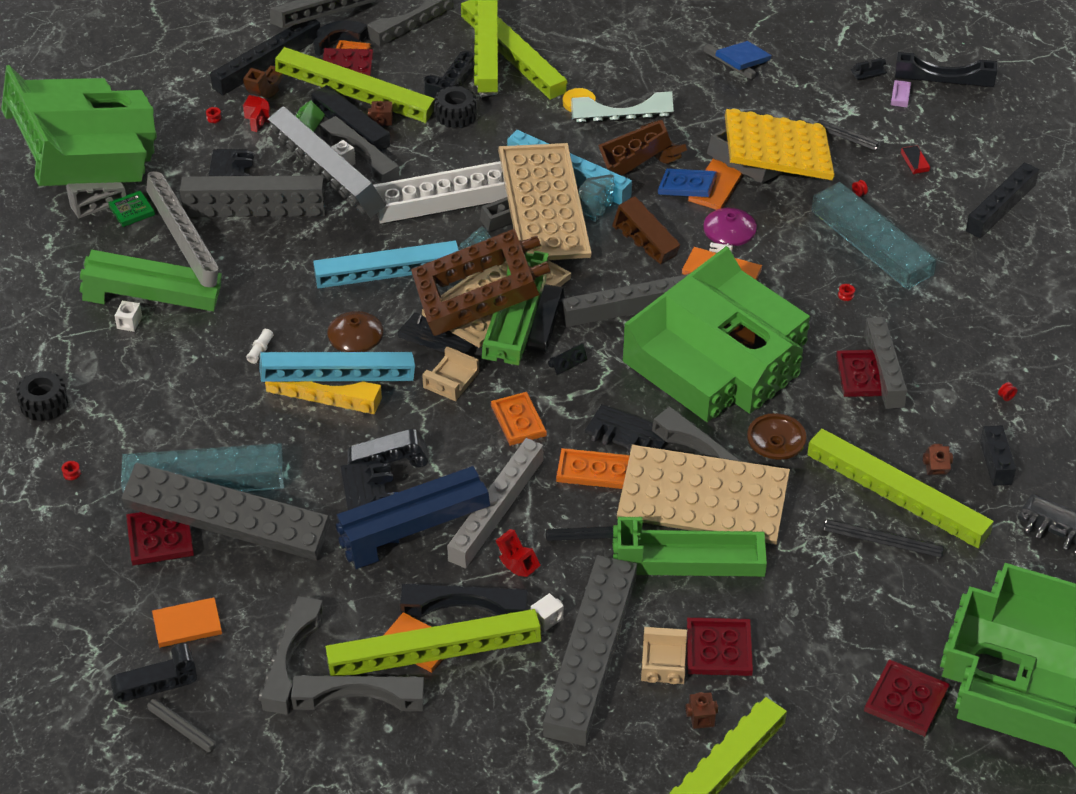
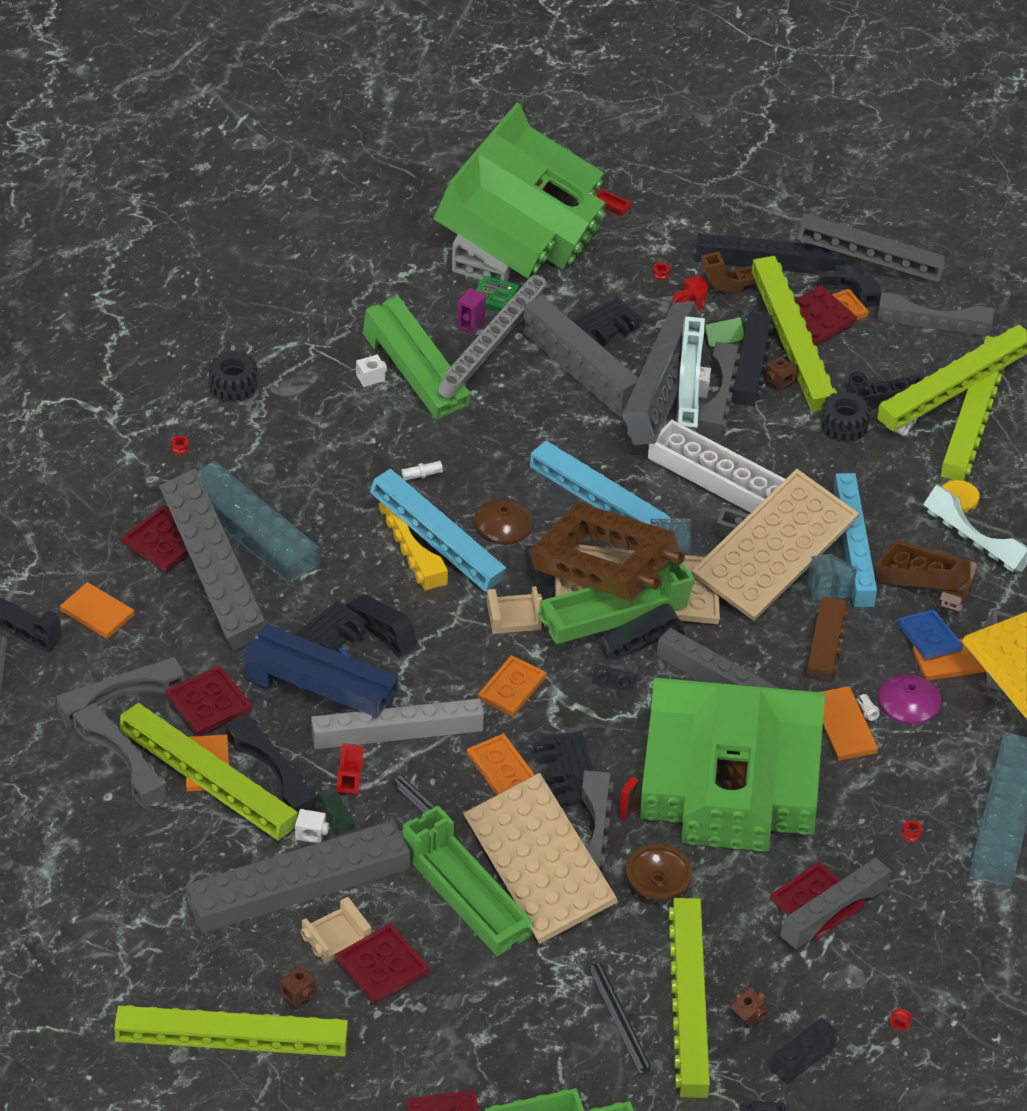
camera: 50 degrees right, 0 degrees up
(141, 226) = (471, 311): none -> magenta brick
(324, 126) = (689, 372): none -> light aqua arch
(357, 603) = (208, 700): none -> dark red plate
(540, 588) = (336, 812): none -> clear green panel
(696, 411) = (628, 798): none -> red tile

